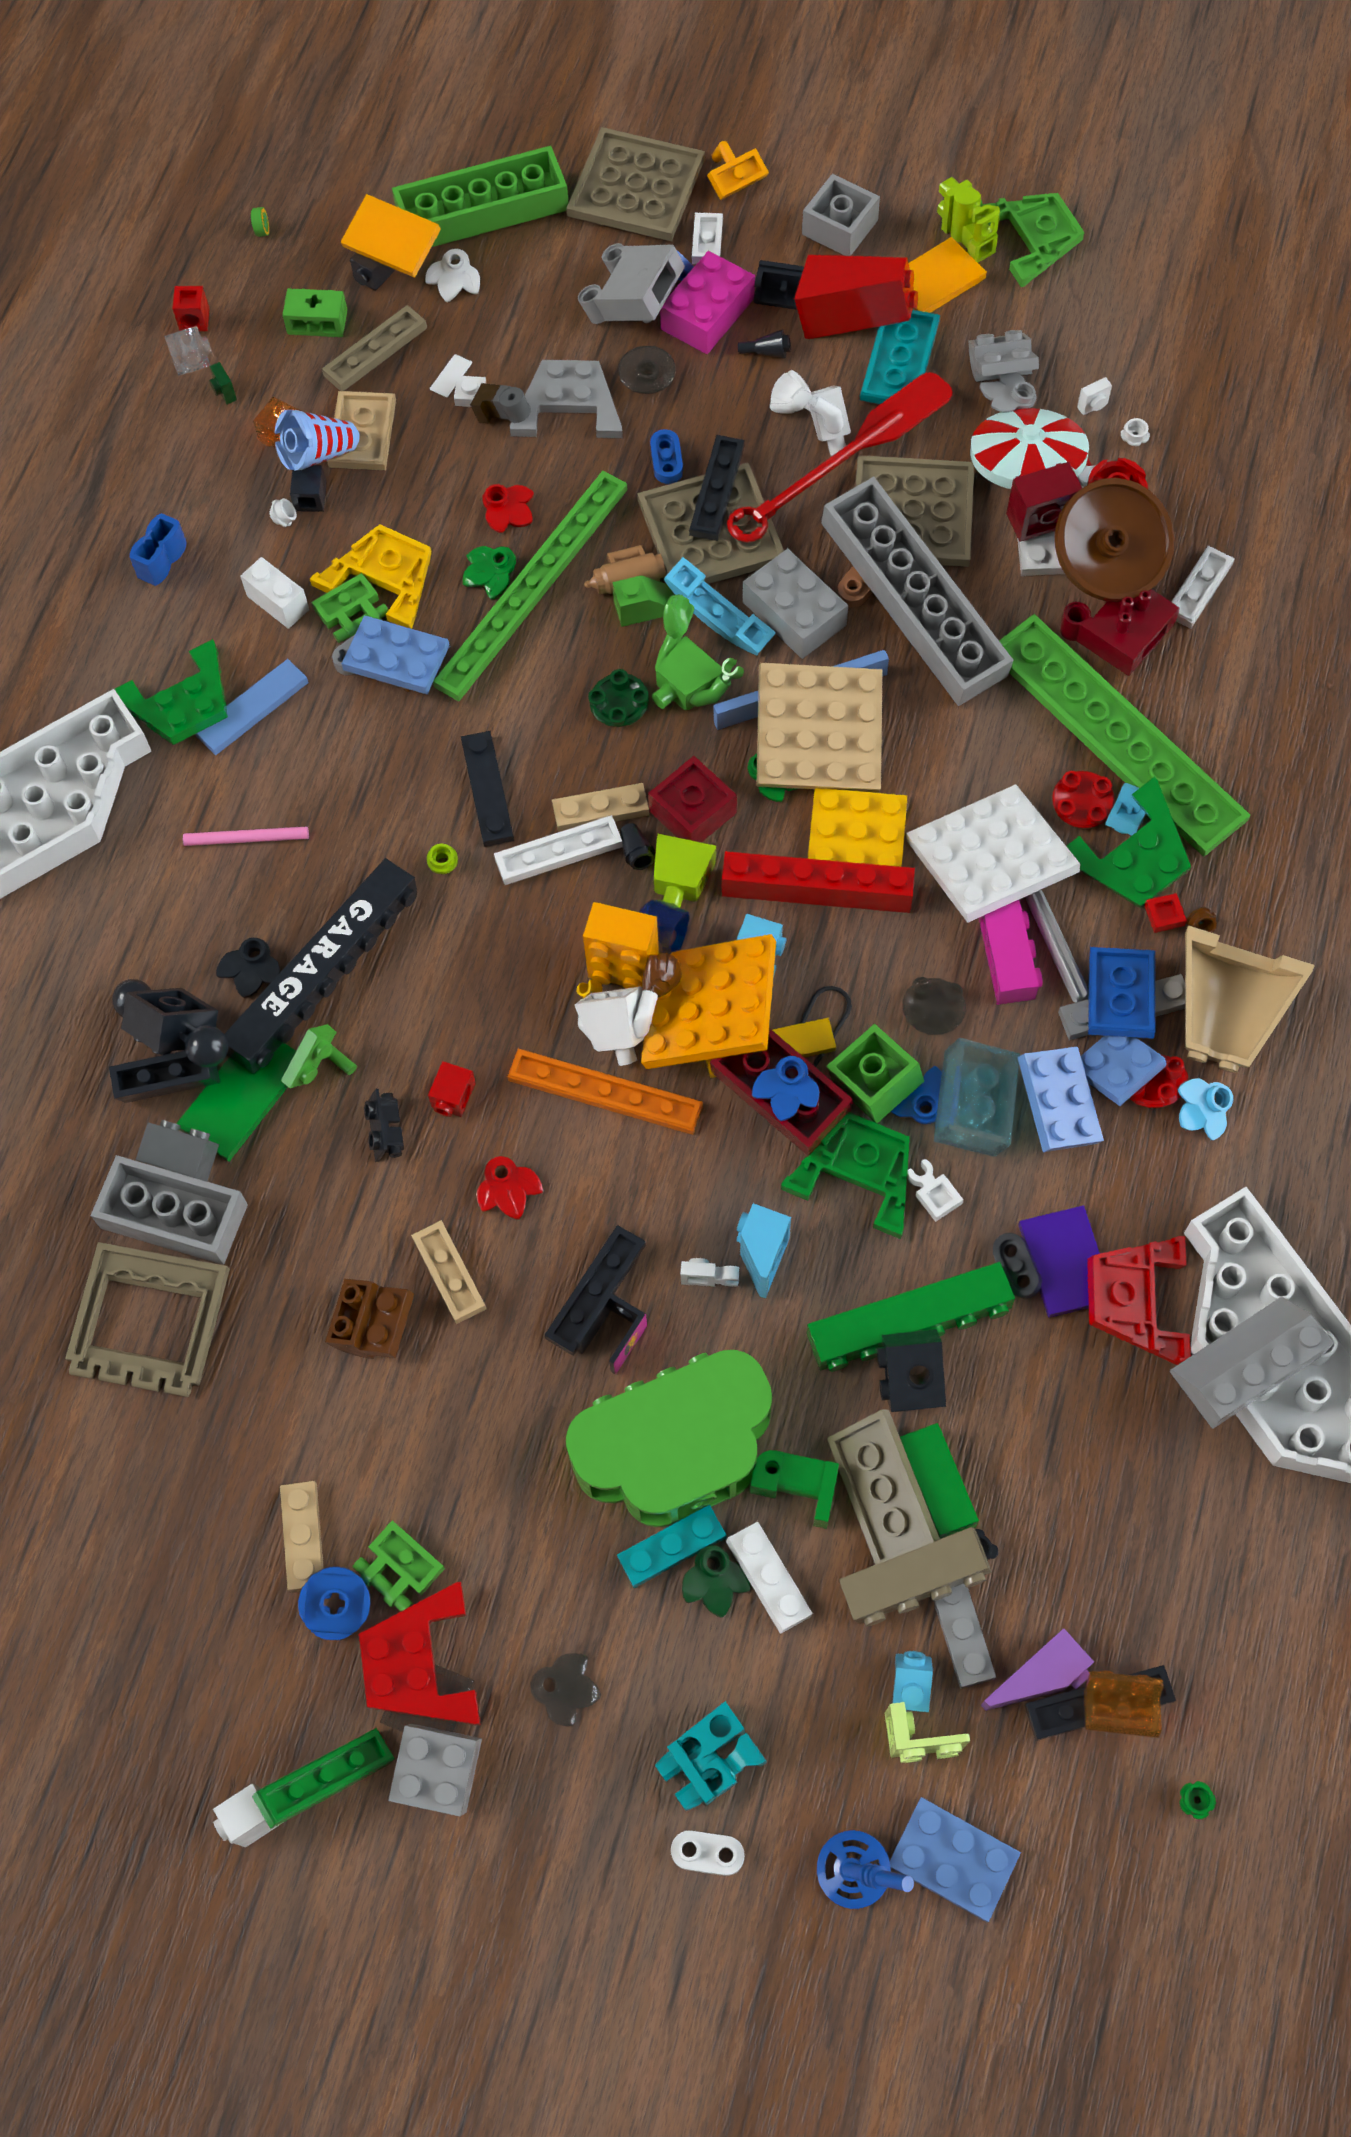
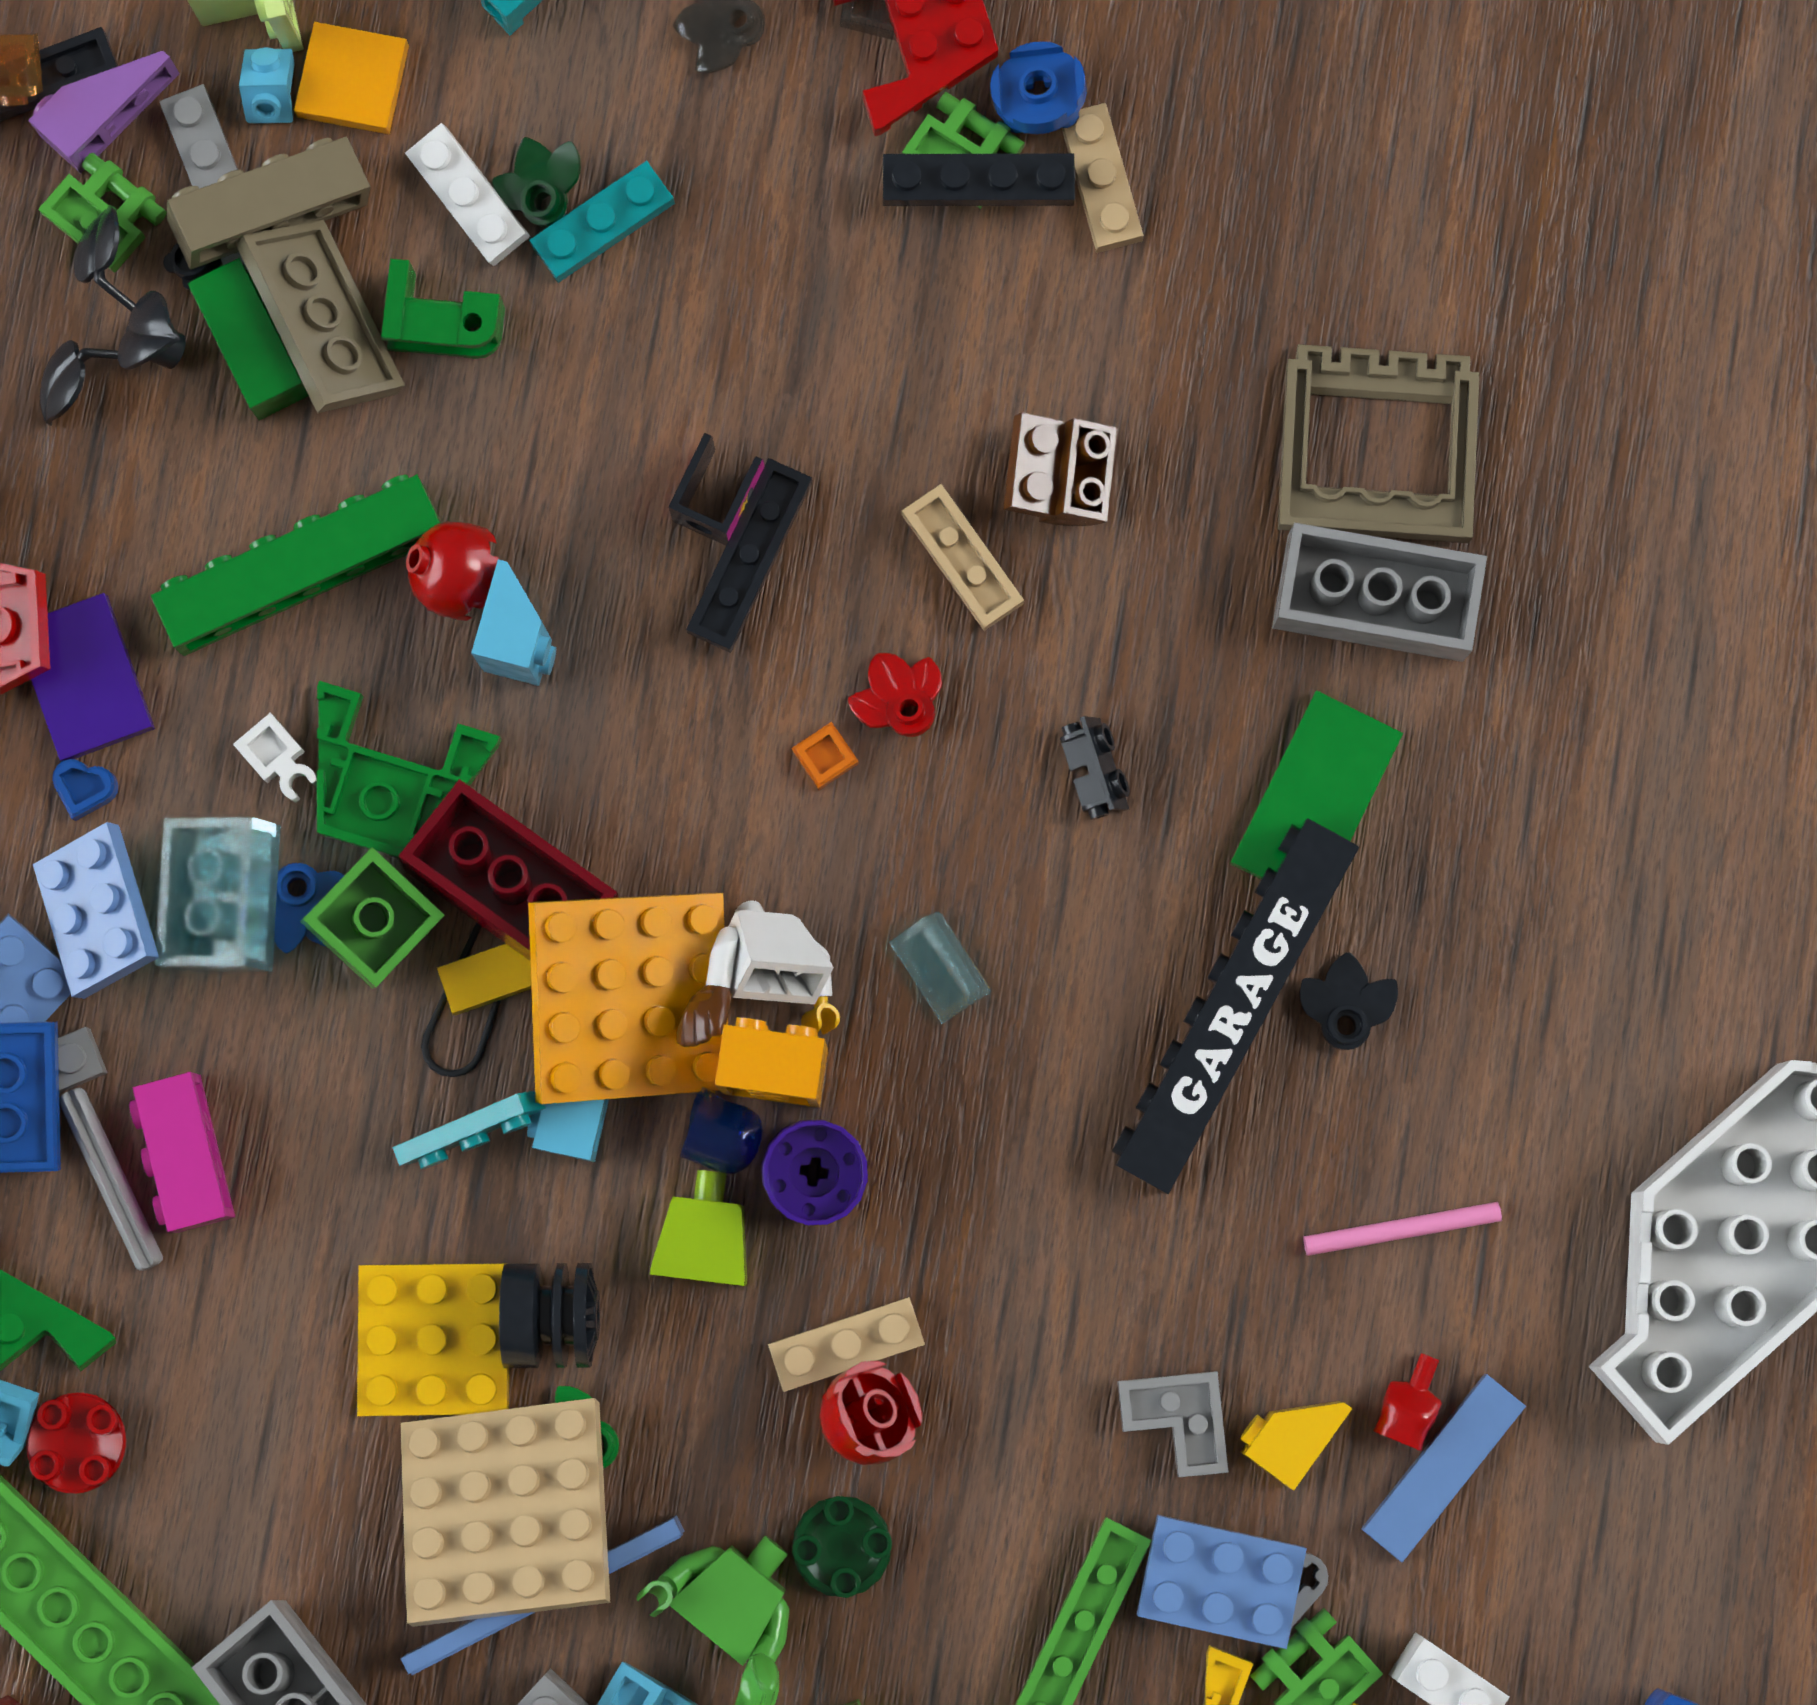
camera: 170 degrees right, 15 degrees up
(159, 1077) = (1433, 794): black brick -> none
(170, 1021) = (1440, 869): black brick -> none
(177, 1151) = (1388, 683): dark grey brick -> none
(186, 705) = (1547, 1451): green wing -> none
(264, 737) = (1410, 1407): none -> red piece
(313, 1048) = (1210, 855): bright green plate -> none
(336, 726) = (1292, 1439): none -> yellow slope
(390, 1534) = (979, 179): none -> black plate
(399, 751) = (1187, 1405): none -> light grey plate
(442, 851) = (1098, 1215): lime plate -> none
(451, 1089) = (1003, 829): red brick -> none
(487, 788) = (1033, 1359): black plate -> none
(507, 1016) = (940, 966): none -> clear light blue slope
(558, 850) = (901, 1254): white plate -> none
(563, 1155) = (825, 756): none -> orange tile
(590, 757) = (870, 1414): none -> red cylinder
(603, 879) = (830, 1196): none -> dark purple wheel
(605, 1091) = (776, 862): orange tile -> none
(636, 847) = (779, 1273): black cone -> none
(675, 1438) = (608, 343): bright green brick -> none
(692, 801) = (695, 1353): dark red container -> none
(702, 1273) = (600, 594): white plate -> none
(780, 827) = (548, 1315): none -> black wheel
(786, 1092) = (496, 851): blue plate -> none
(800, 1292) = (452, 568): none -> red cylinder
(817, 882) = (485, 1237): red brick -> none
(822, 939) = (469, 1130): none -> plate
(849, 1681) = (351, 78): none -> light orange tile
(898, 1357) = (289, 476): black brick -> none
(934, 1005) = (293, 1053): clear smoke dish -> none
(992, 853) = (214, 1318): white plate -> none
(1006, 1458) = (147, 336): none -> black plant
(1017, 1266) = (153, 658): black plate -> none
(1050, 1587) = (76, 205): none -> bright green plate
(1068, 1189) = (83, 787): none -> blue tile

